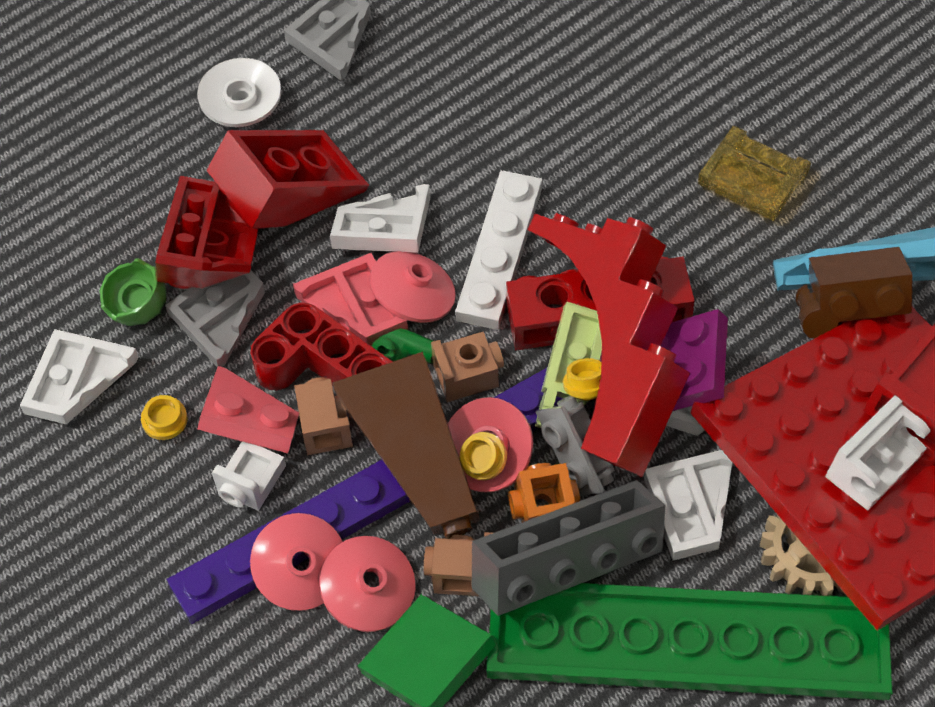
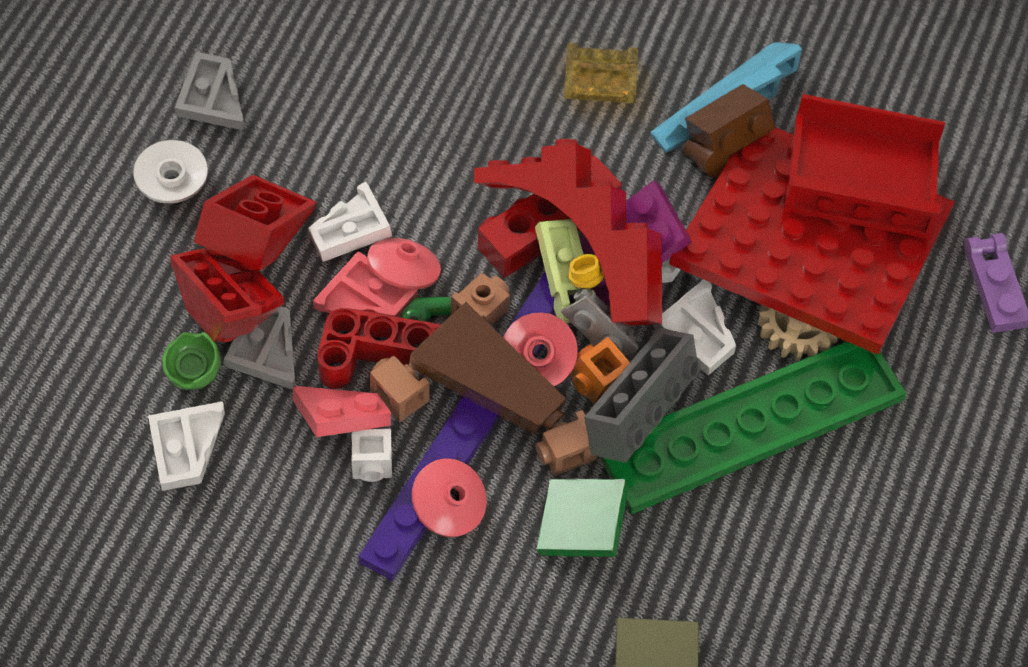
camera: 35 degrees left, 0 degrees up
(164, 417) = (275, 443): yellow plate -> none
(354, 601) = (498, 499): coral dish -> none
(483, 456) = (545, 358): yellow plate -> none
(498, 250) = (448, 209): white plate -> none
(878, 453) = (816, 234): white hinge -> none

